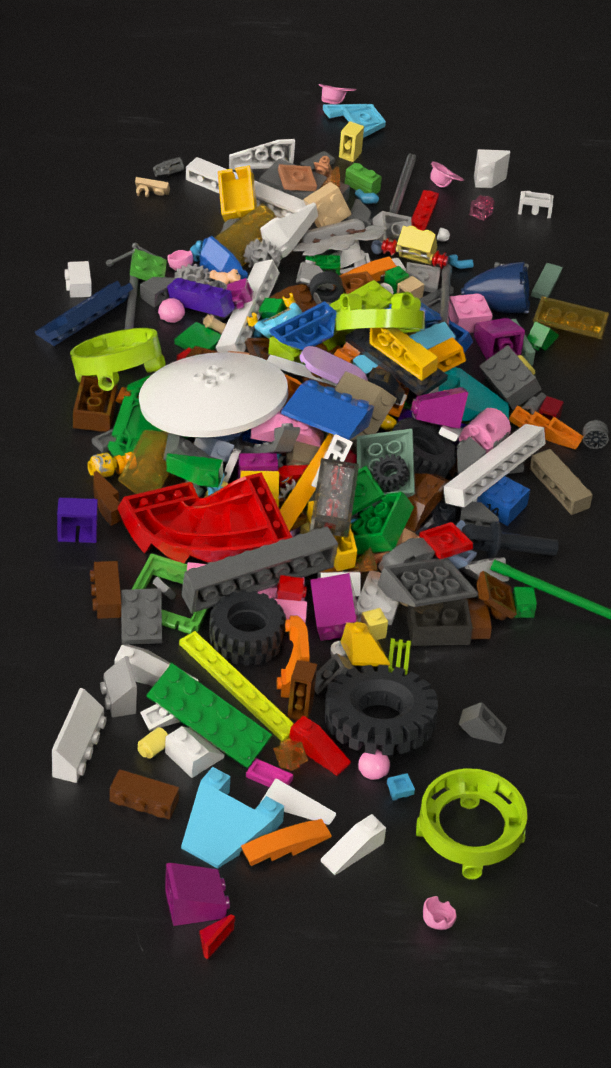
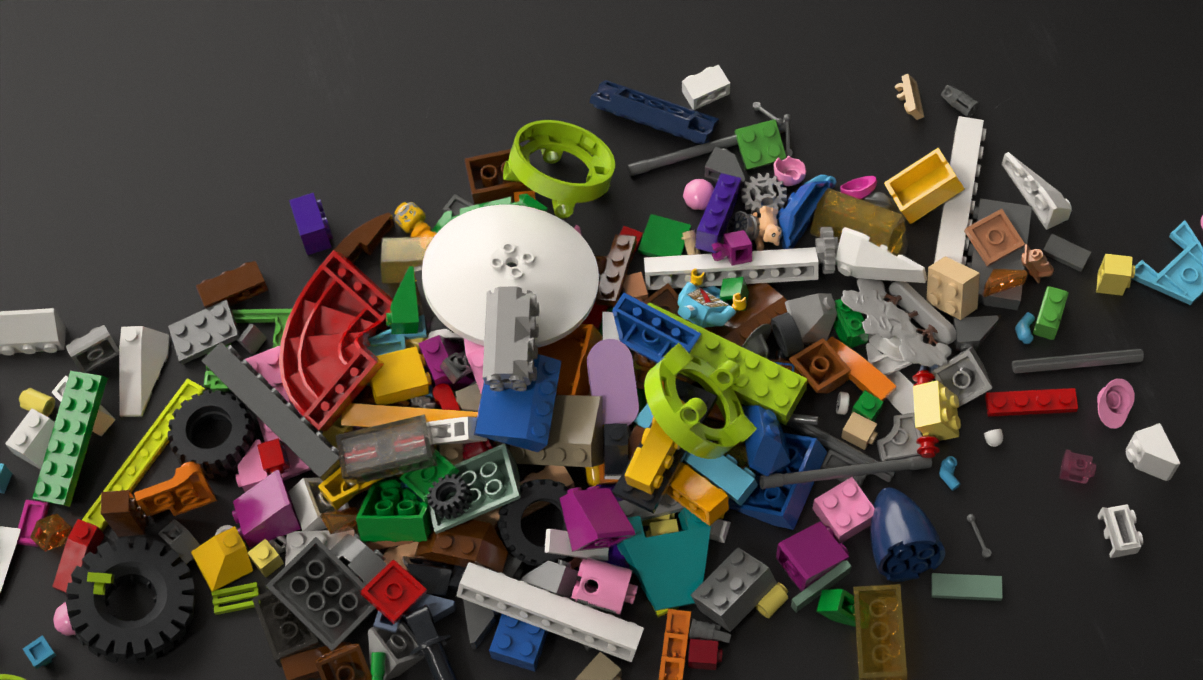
camera: 80 degrees right, 20 degrees up
(214, 228) = (859, 187): none -> dark pink hat
(299, 384) = (510, 339): none -> light grey brick
(368, 705) = (100, 581): none -> lime tile

